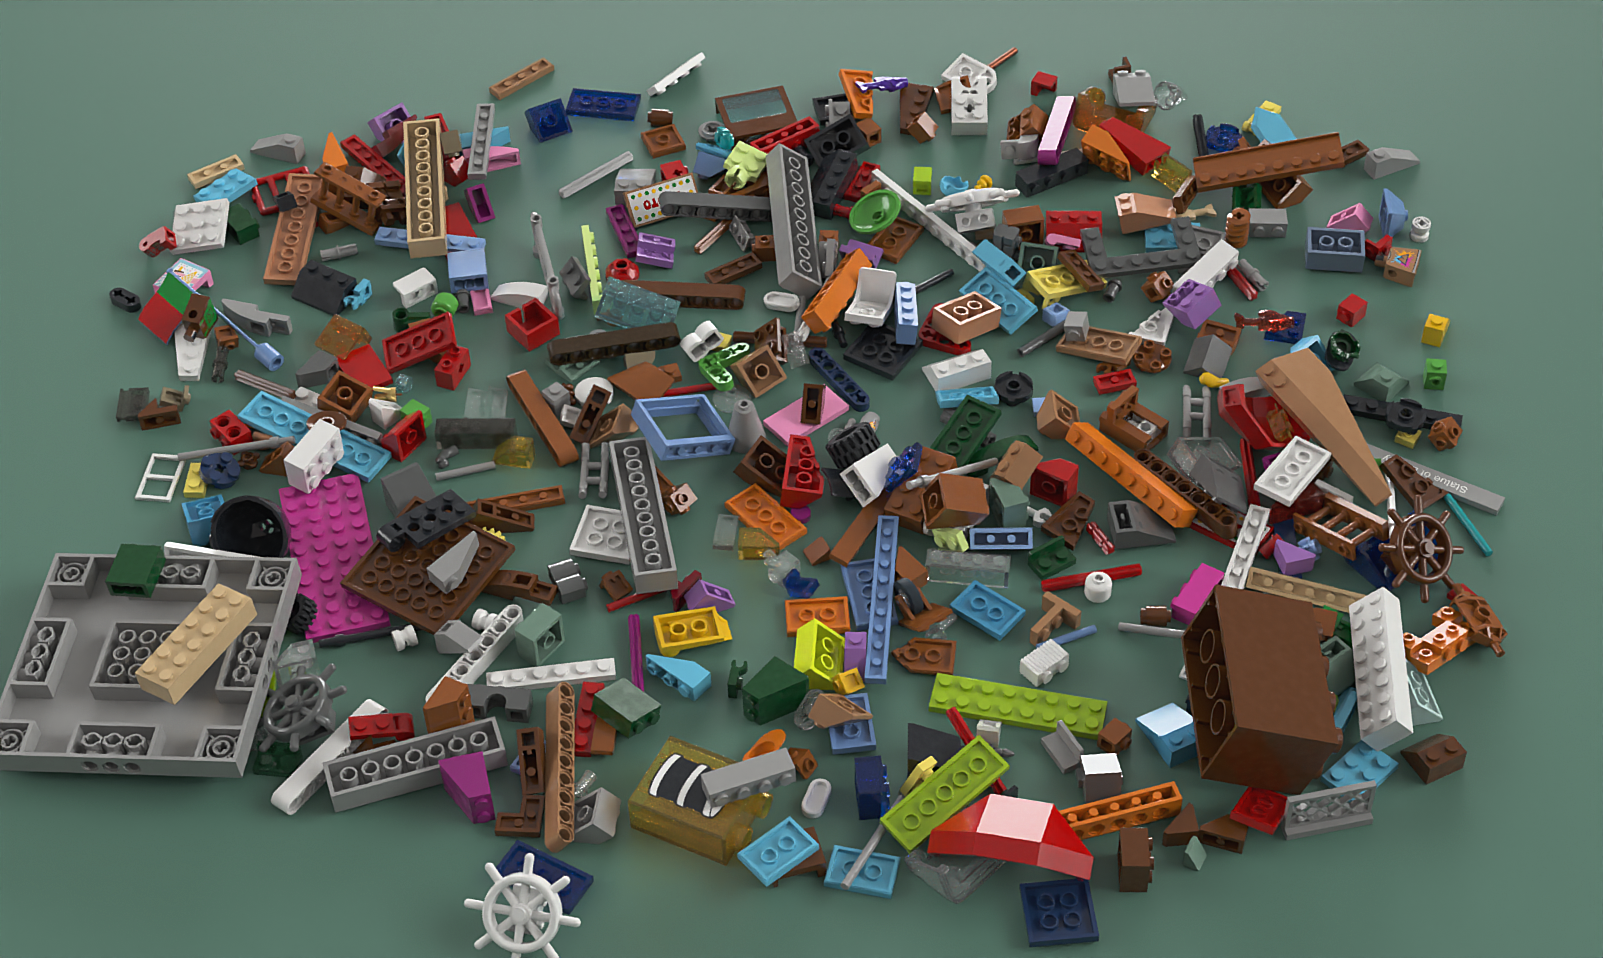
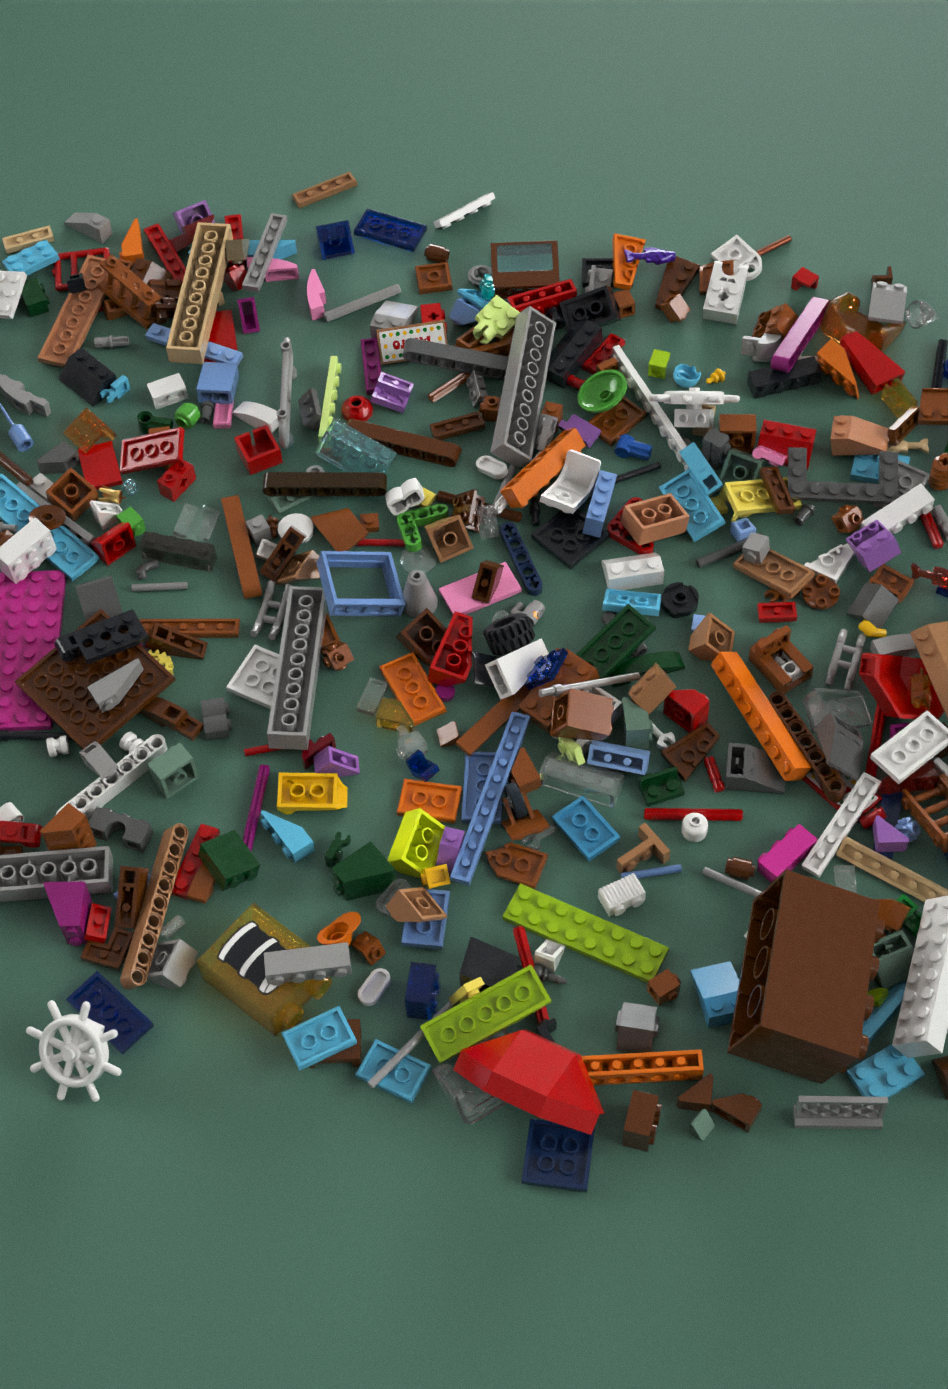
camera: 15 degrees right, 10 degrees up
(503, 795) = (97, 923): none -> red plate
(515, 452) = (208, 577): clear yellow slope -> none
(546, 176) = (316, 296): none -> bright pink slope
(552, 675) = (176, 810): white plate -> none
(615, 584) = (256, 731): dark orange bracket -> none
(636, 358) = (341, 503): dark tan brick -> none
(916, 260) = (629, 447): none -> blue piece
(1063, 748) = (612, 988): light grey panel -> none
(1260, 809) = (776, 1094): red tile -> none

